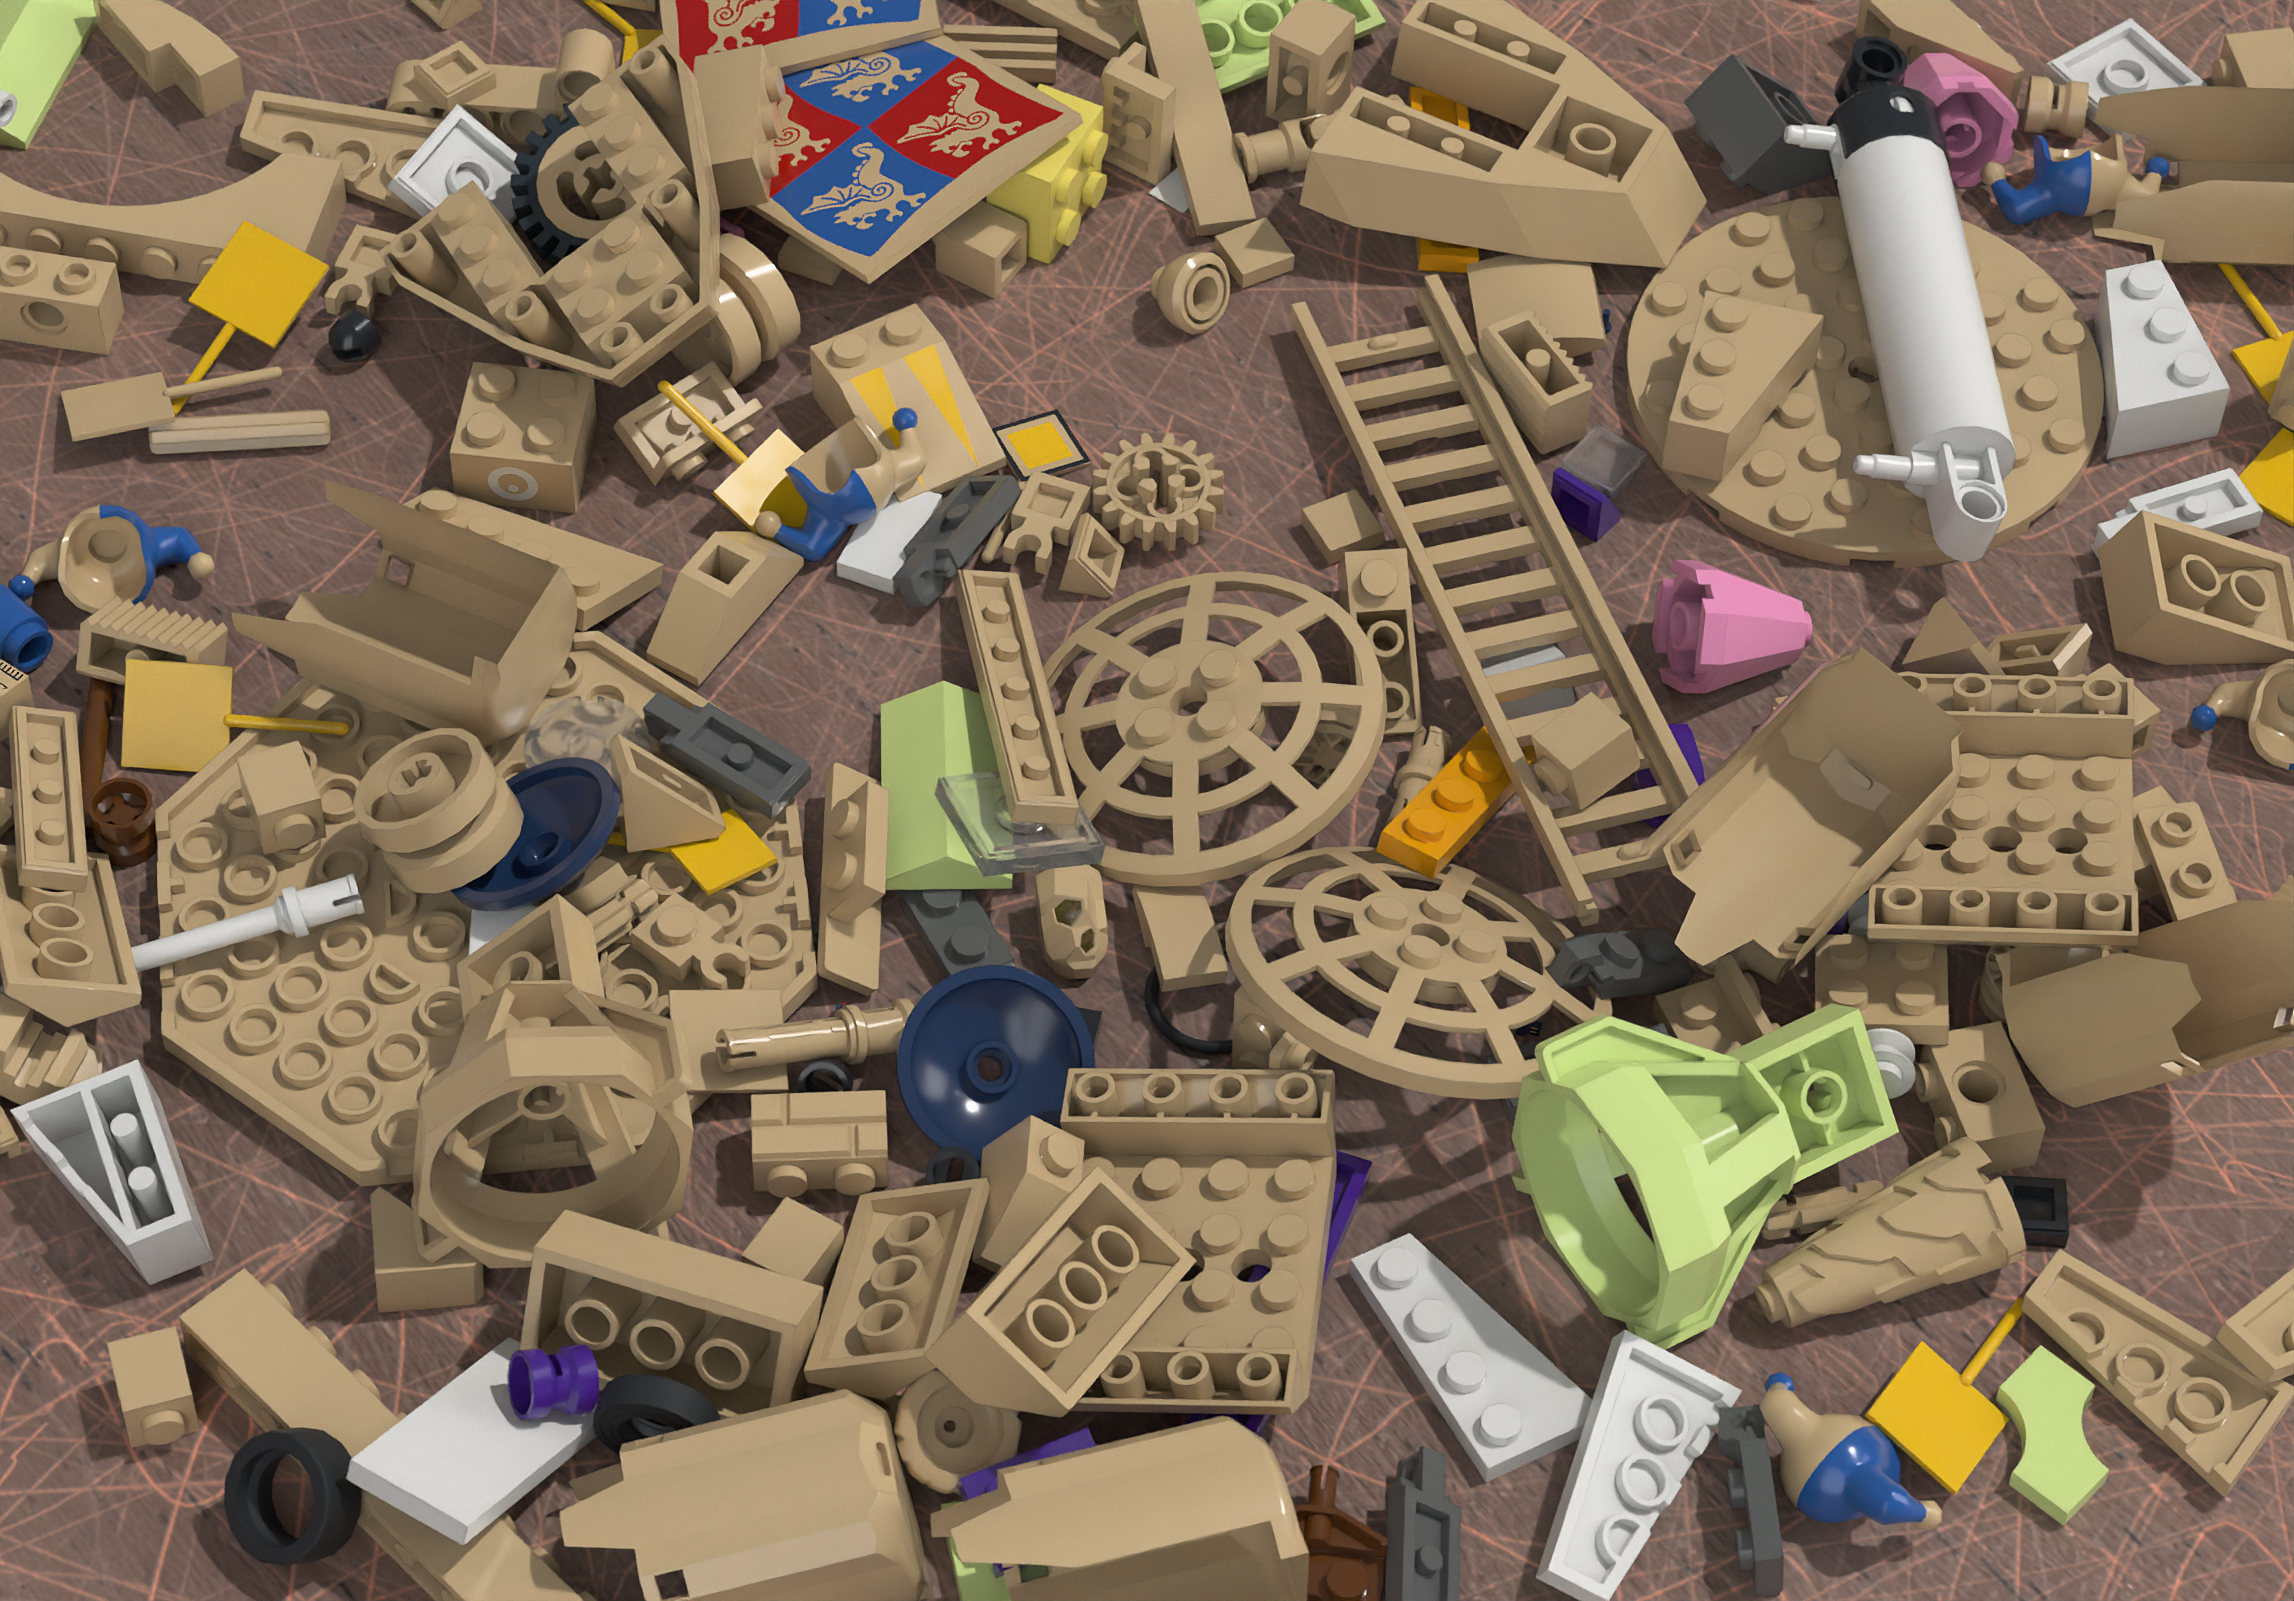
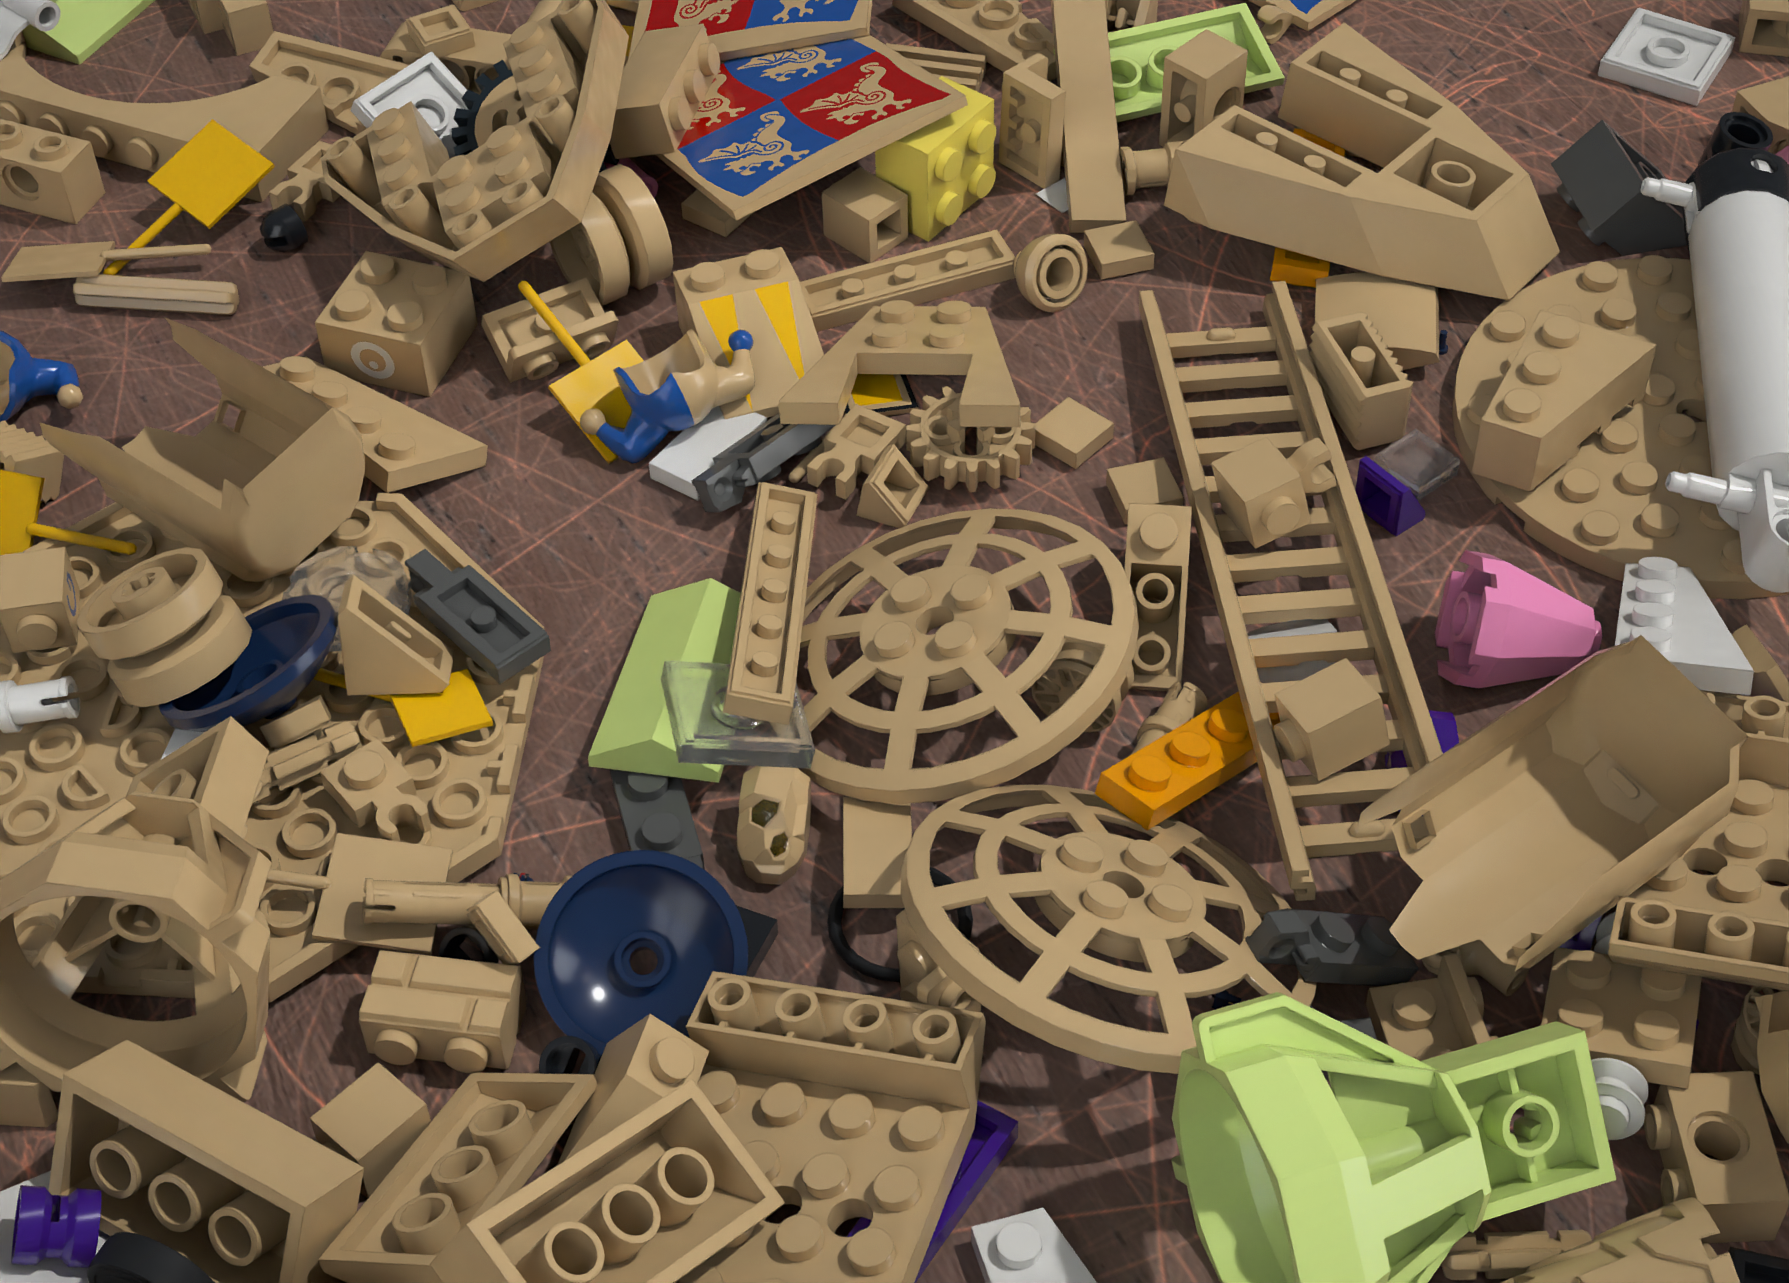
camera: 15 degrees right, 5 degrees down
(718, 601) = (522, 479): tan slope -> none
(852, 878) = (558, 752): tan bracket -> none
(862, 1058) = (502, 929): none -> tan tile
(1047, 313) = (910, 277): none -> tan tile
(1085, 390) = (911, 342): none -> tan wing
(1257, 471) = (1072, 432): none -> tan tile
(1476, 521) = (1267, 491): none -> tan brick
(1880, 609) = (1682, 624): none -> white wing

